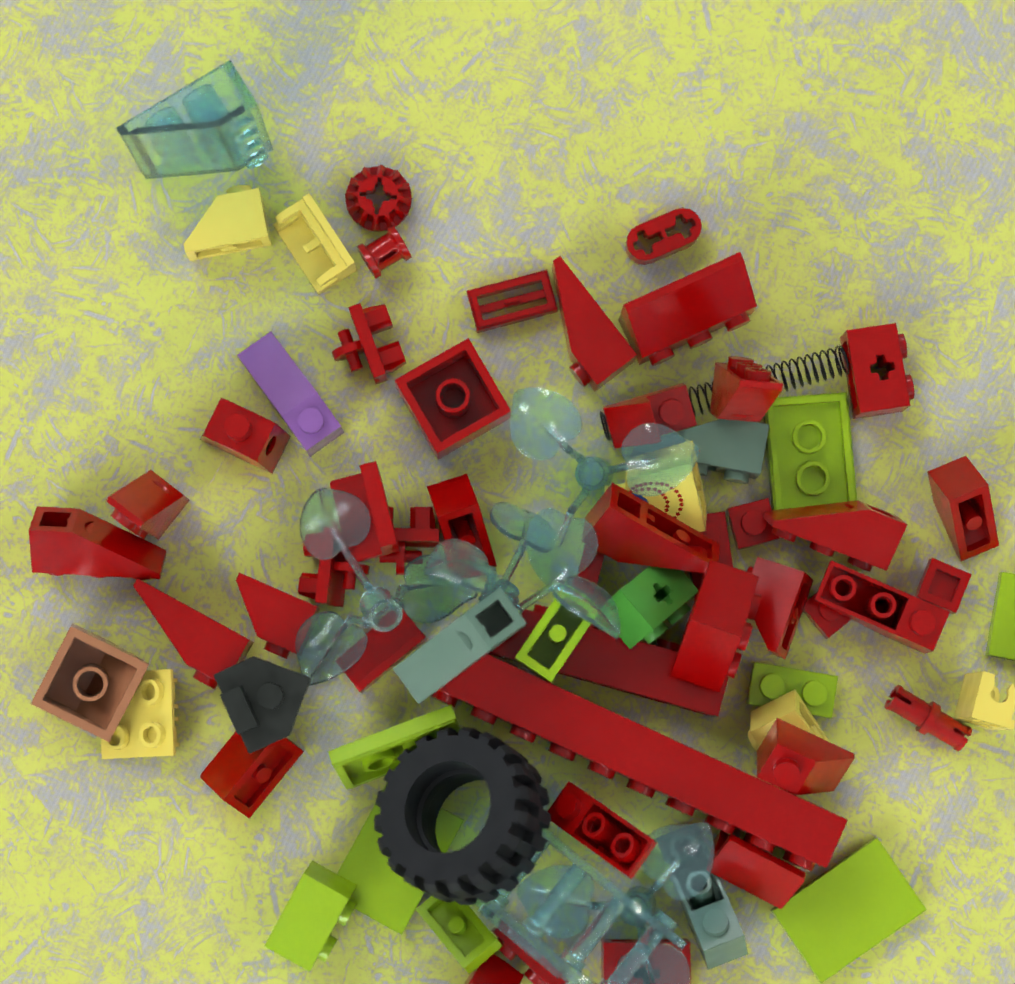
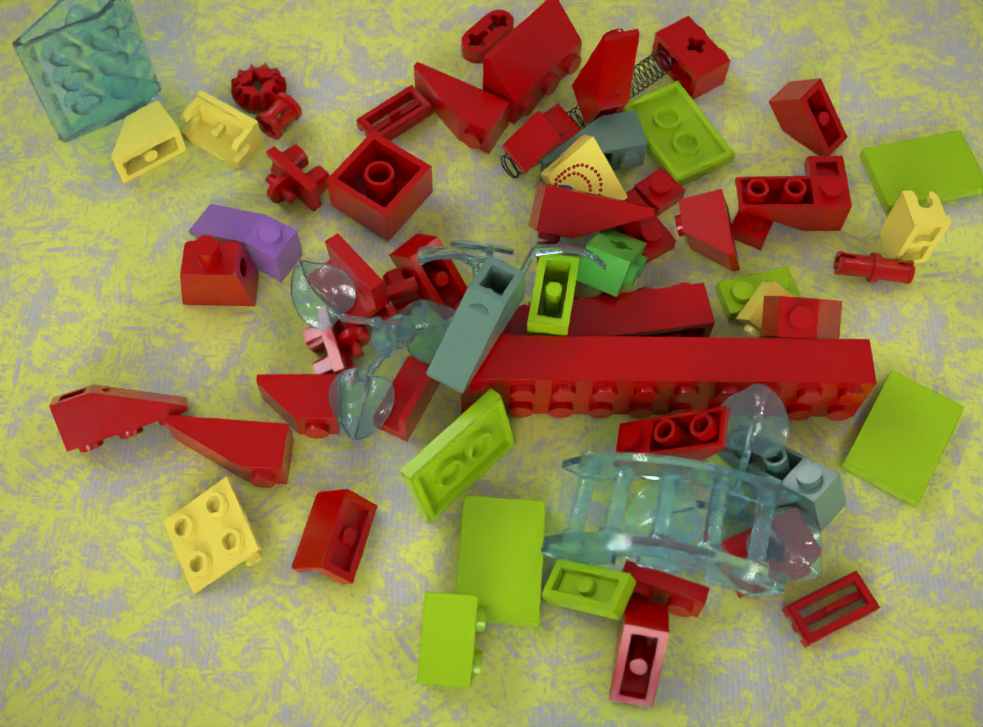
camera: 20 degrees left, 20 degrees down
(90, 682) = (153, 519): nougat slope -> none
(147, 505) = (152, 355): red slope -> none
(262, 700) = (321, 463): pearl dark grey plate -> none
(421, 787) = (578, 505): black tyre -> none
(655, 464) = (464, 160): clear light blue plant -> none
(717, 626) = (678, 247): red brick -> none
(755, 870) = (821, 424): red panel -> none
(845, 527) = (740, 154): red slope -> none

